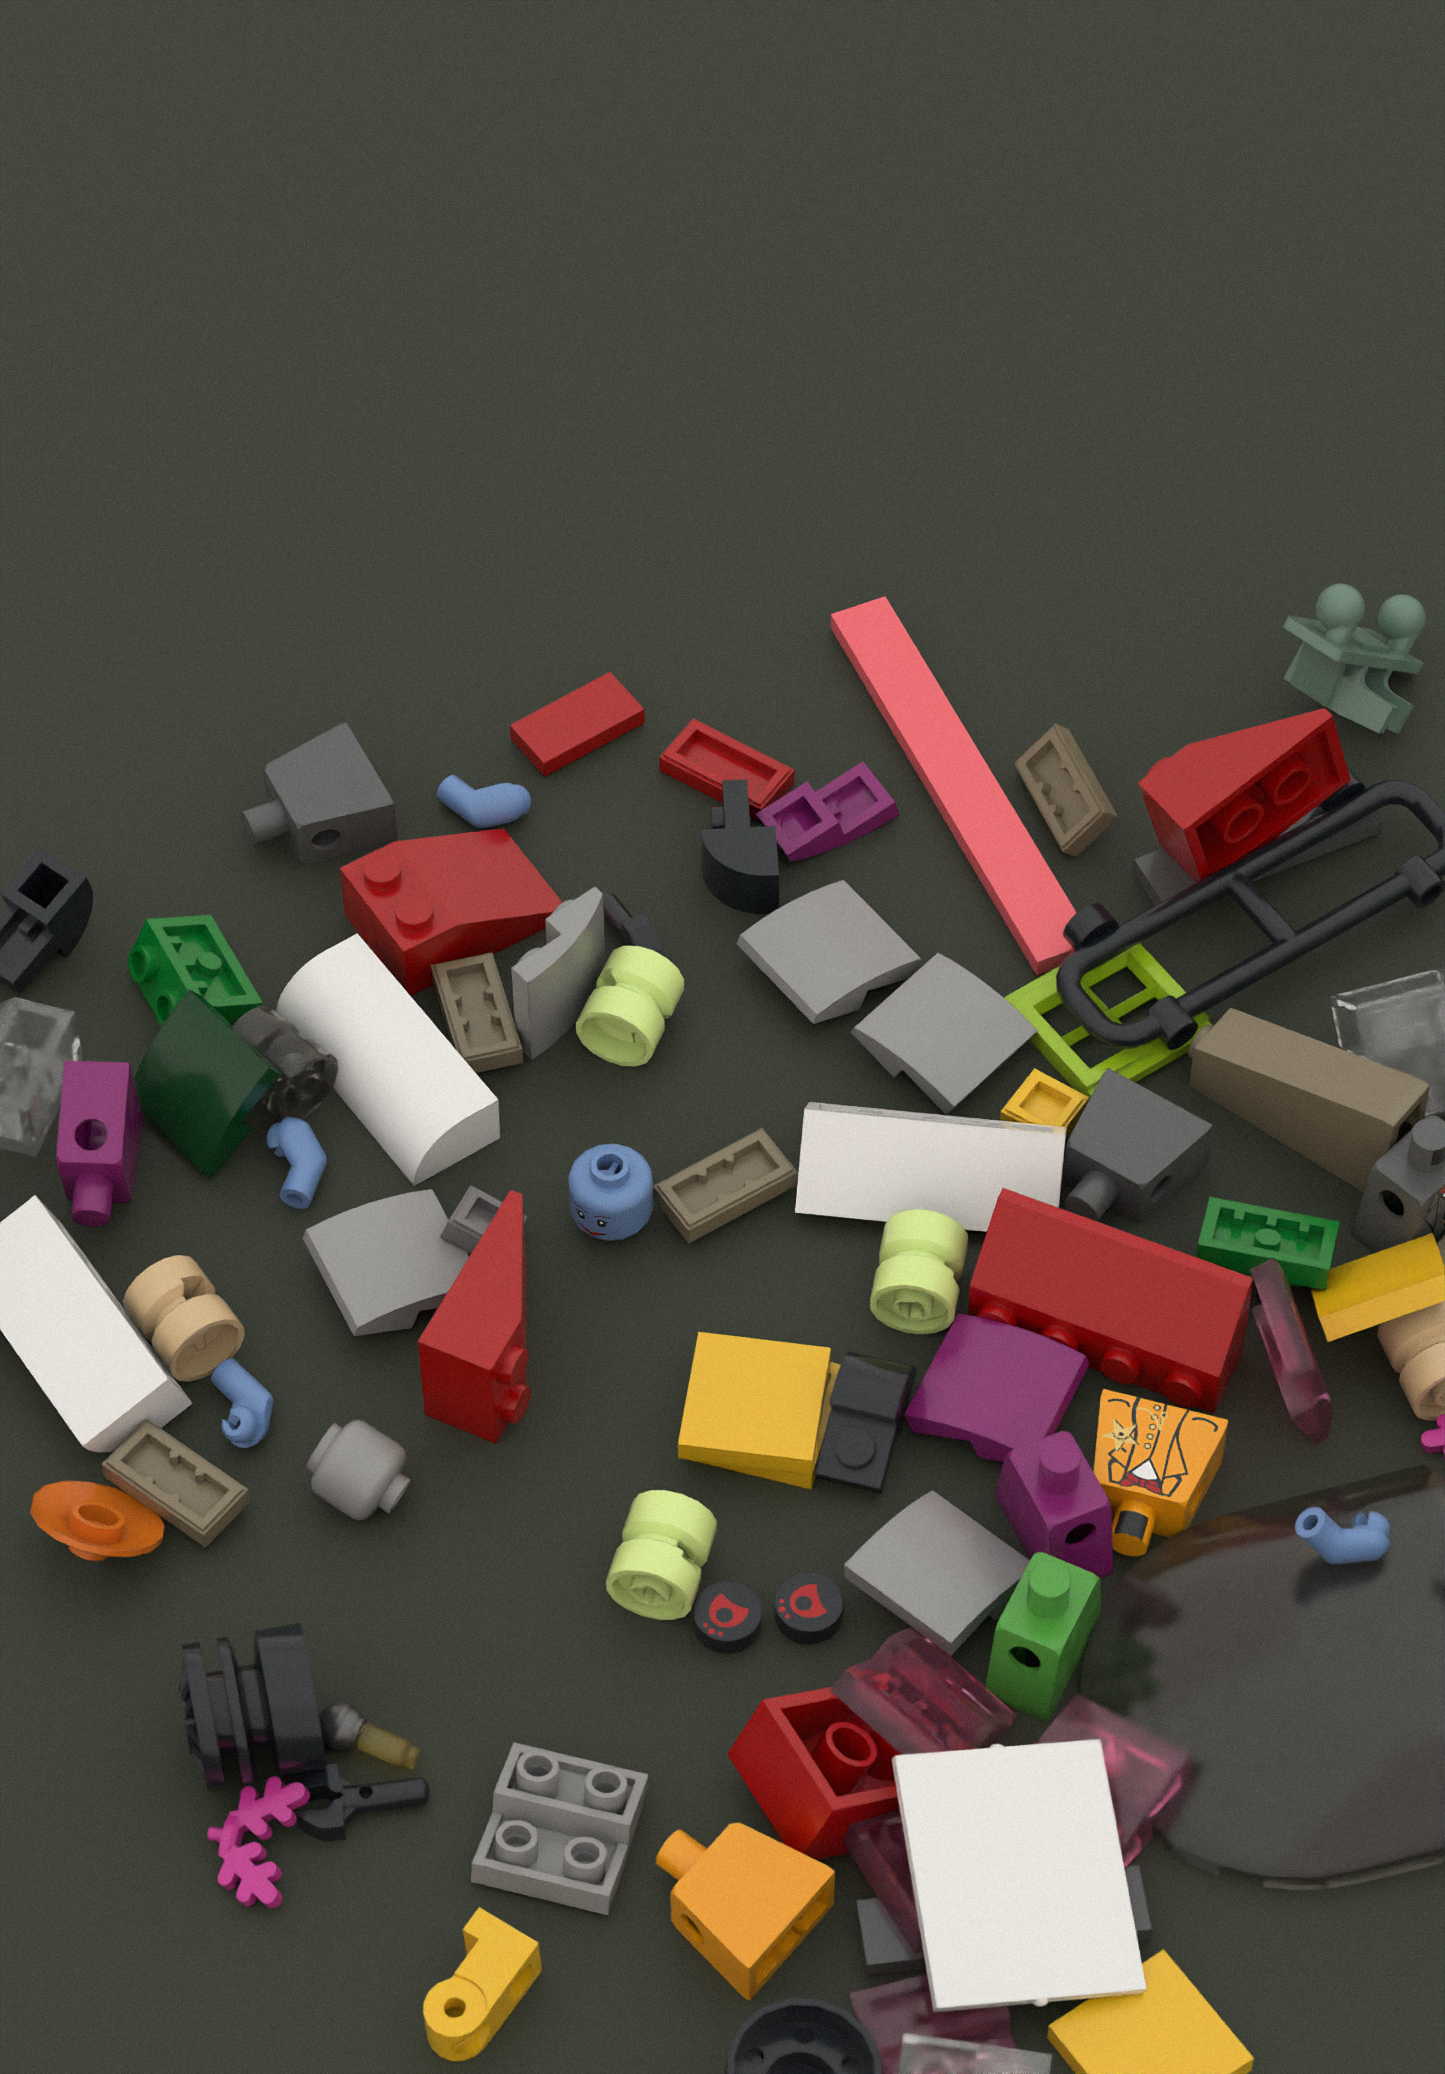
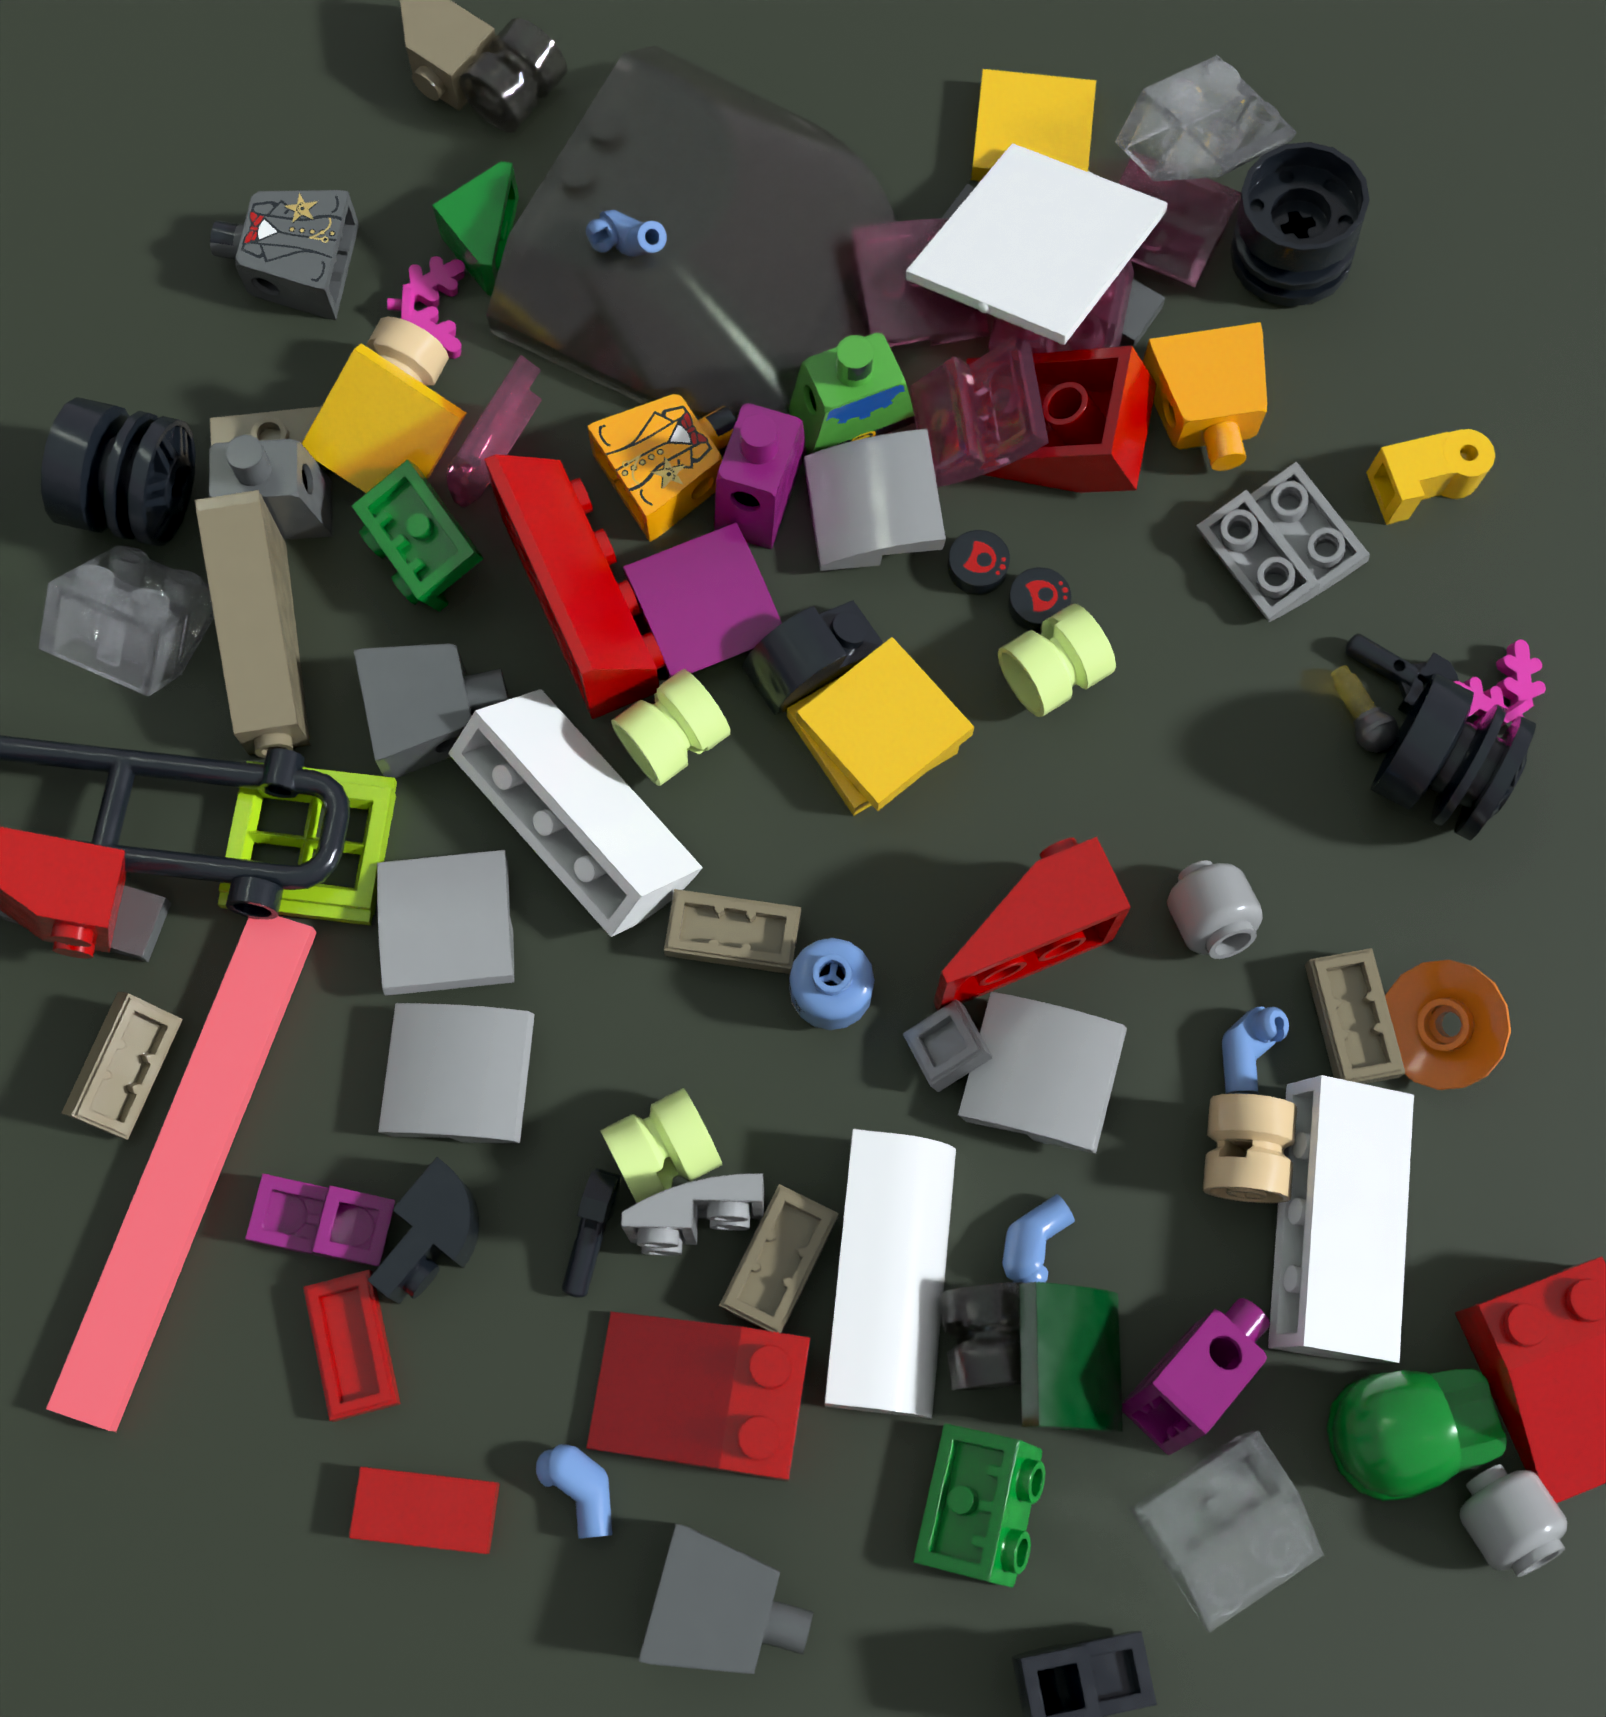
camera: 140 degrees left, 20 degrees up
(1045, 1102) = (436, 805): yellow tile -> none

